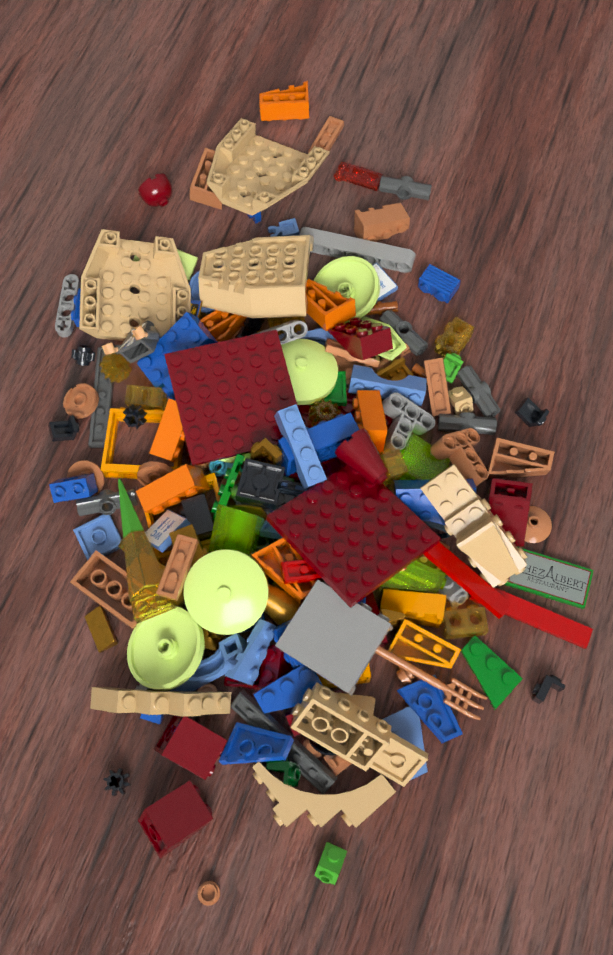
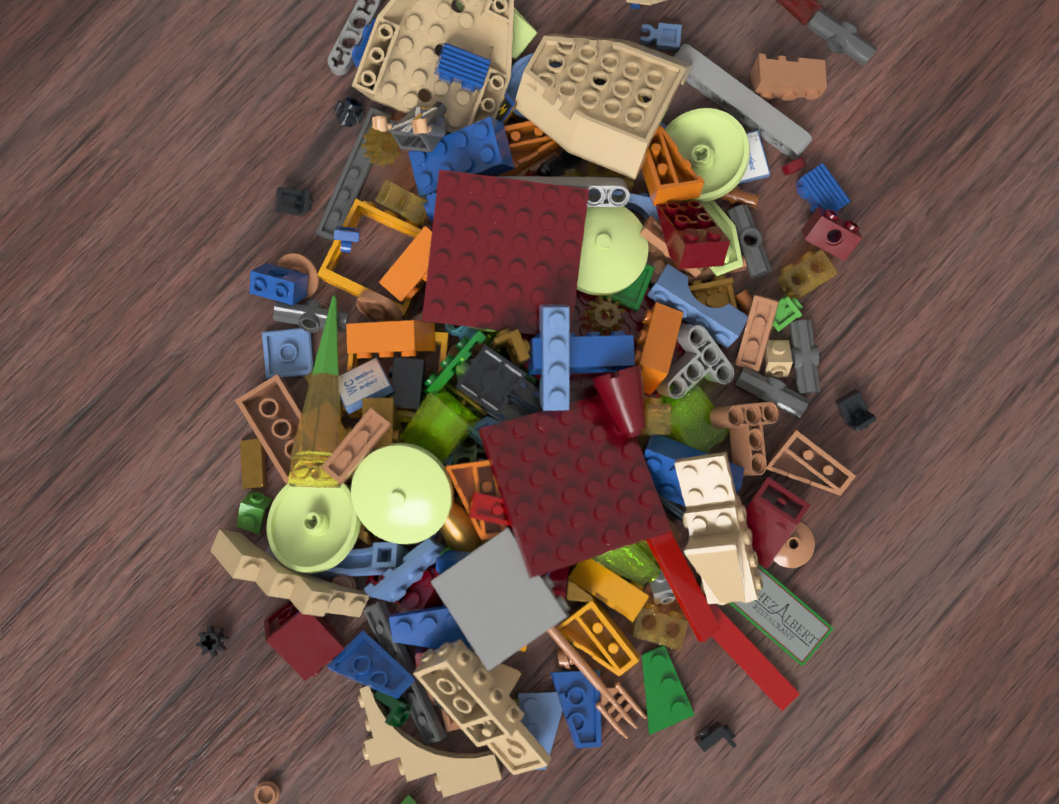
camera: 20 degrees right, 15 degrees up
(81, 401) = (326, 171): nougat tile -> none
(113, 434) = (347, 236): none -> tile
(114, 666) = (253, 512): none -> bright green bracket
(134, 416) = (380, 224): black gear -> none
(153, 293) = (461, 67): none -> blue brick
(175, 818) = (260, 706): dark red slope -> none
(411, 275) = (793, 166): none -> dark red tile
(467, 308) = (837, 244): none -> dark red brick

